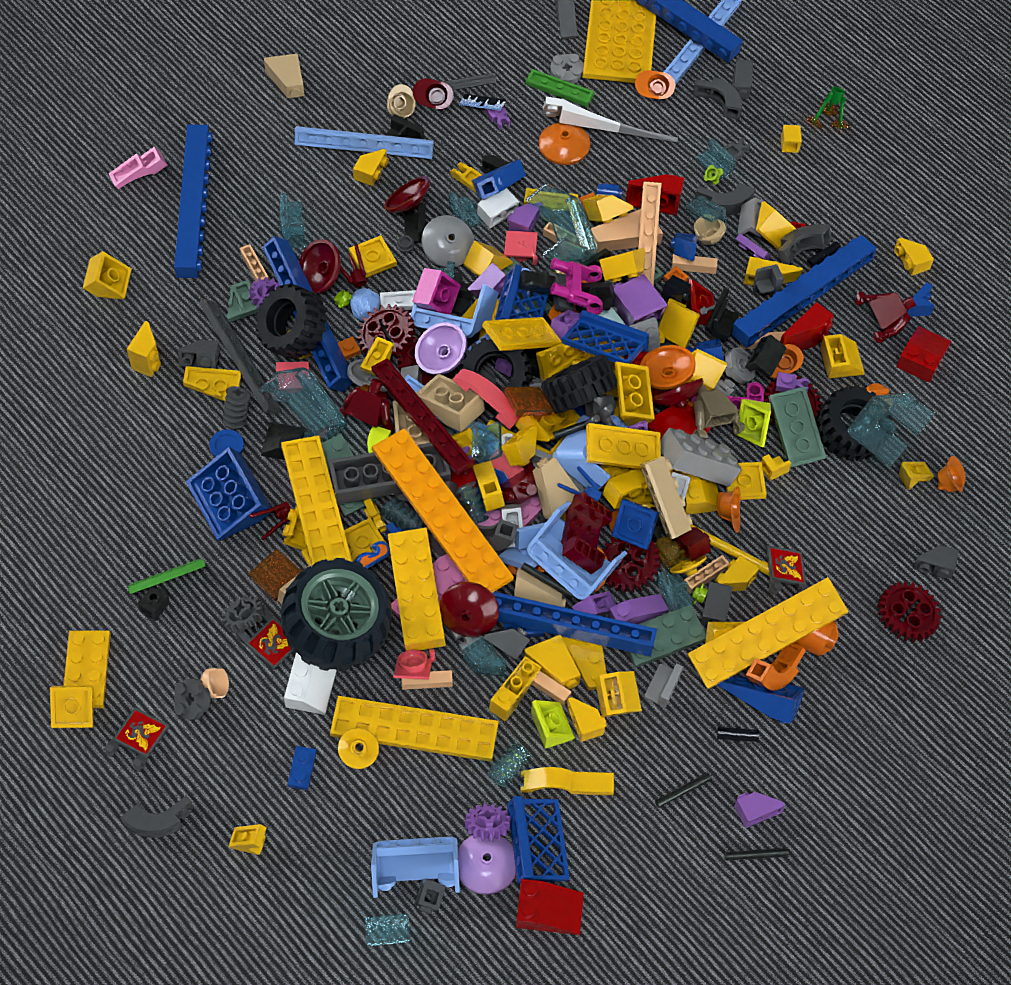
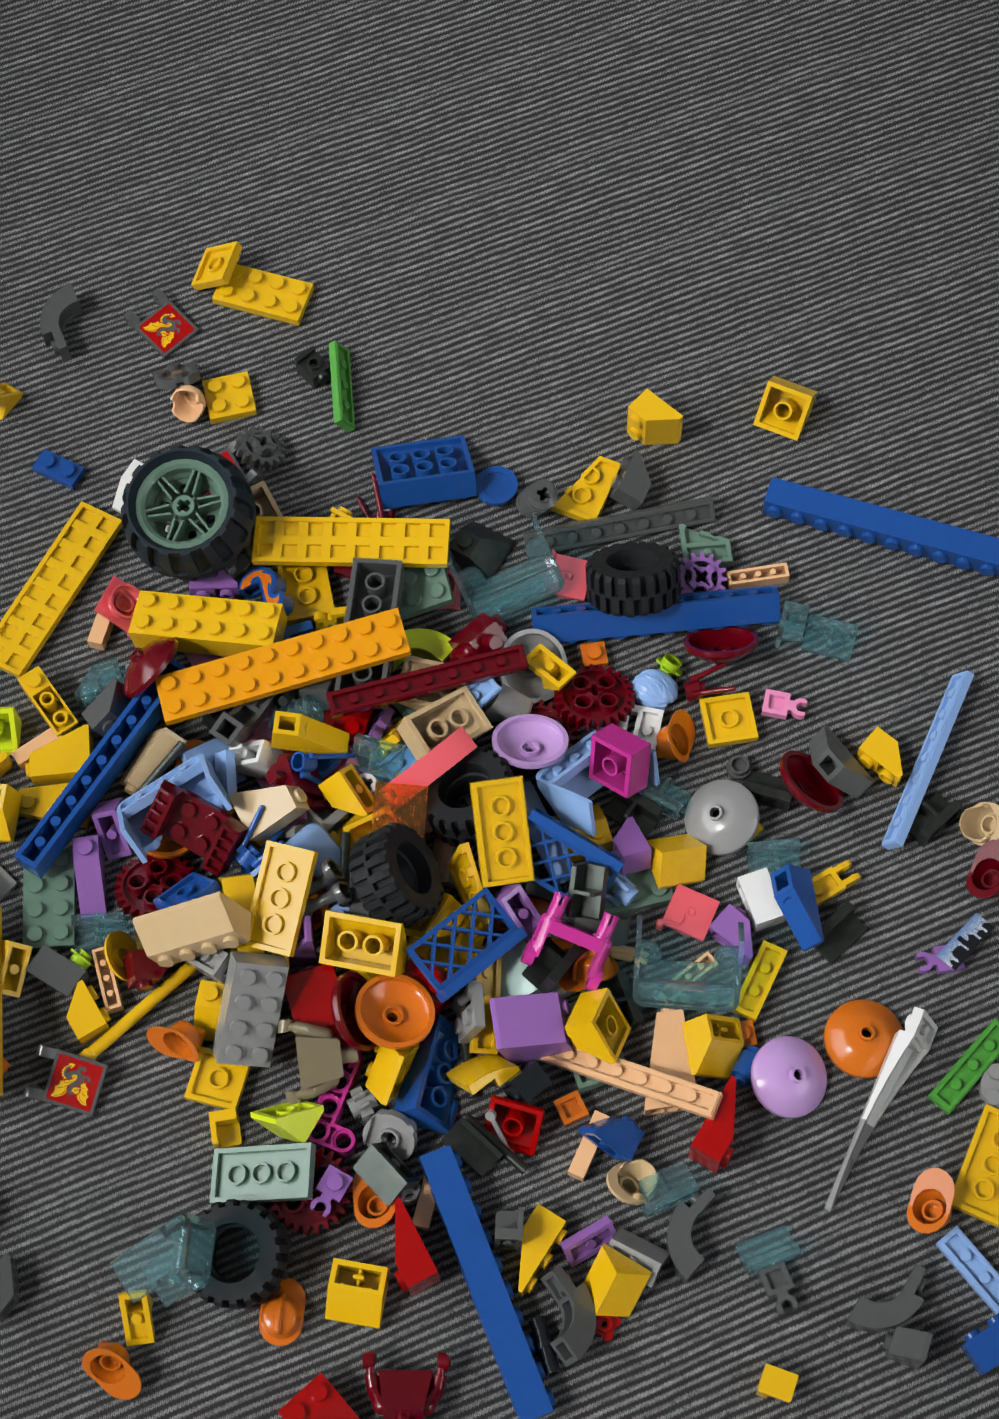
camera: 115 degrees right, 5 degrees up
(137, 167) = (955, 476): bright pink slope -> none
(195, 658) = (229, 397): none -> yellow plate
(274, 573) = (301, 495): clear orange tile -> none
(351, 230) = (778, 704): none -> bright pink plate
(351, 755) = (51, 524): yellow dish -> none
(383, 189) = (838, 764): none -> dark grey slope
(401, 282) = (676, 738): none -> orange piece
(510, 474) = (308, 762): none -> blue plant
(608, 169) = (775, 1081): none -> lavender dish
(708, 174) = (741, 1233): lime plate -> none

